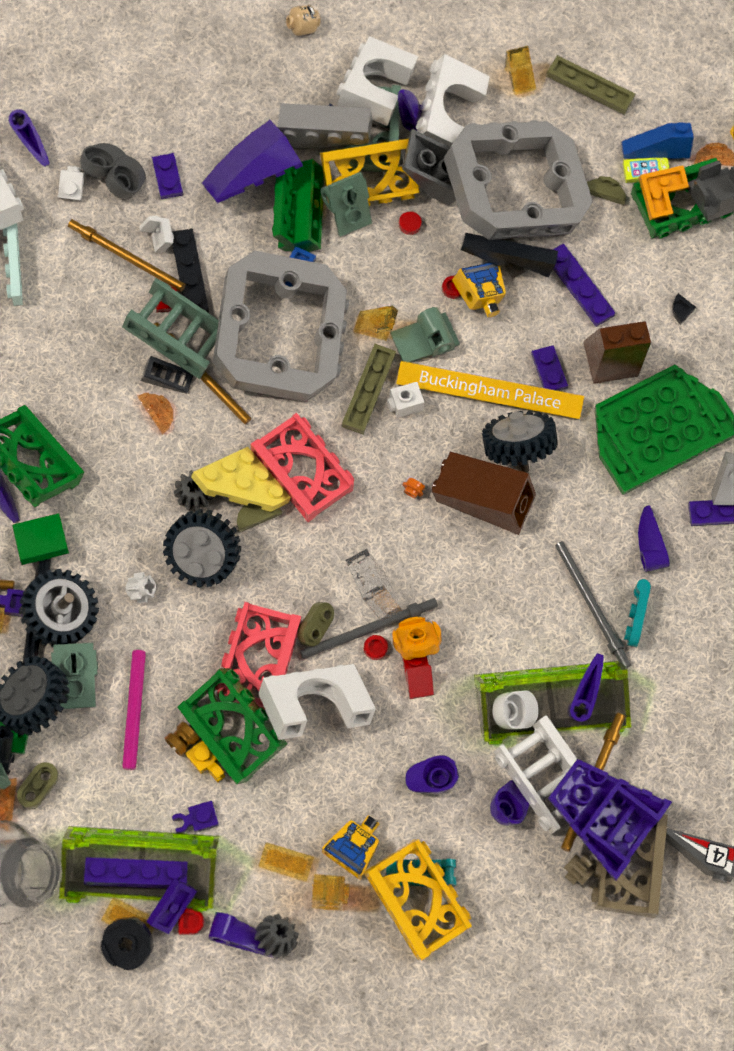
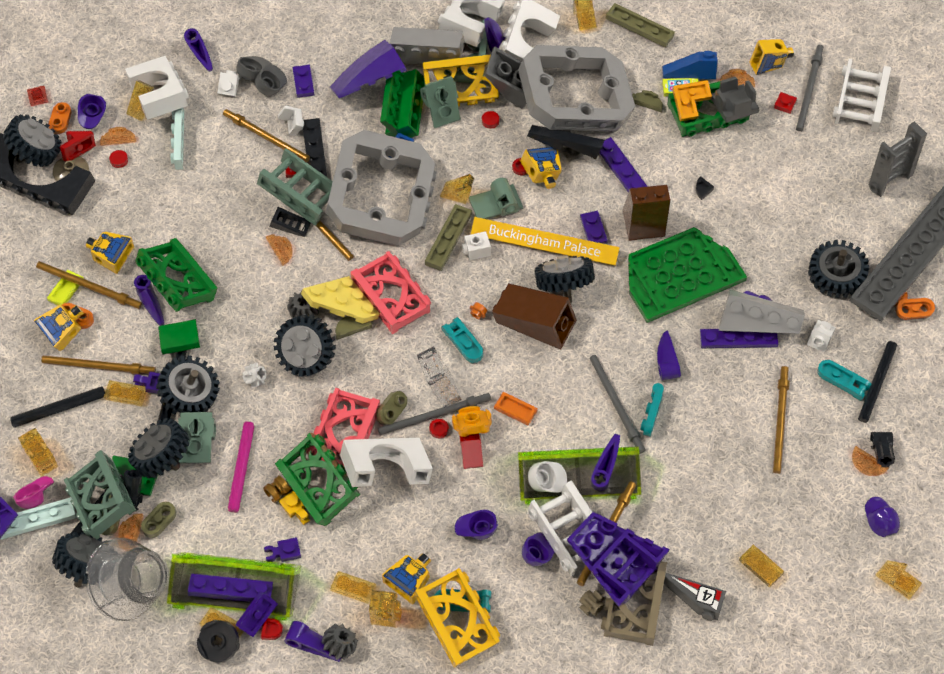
camera: 10 degrees right, 10 degrees down
(398, 528) = (463, 340): none -> teal plate
(468, 616) = (515, 408): none -> orange tile

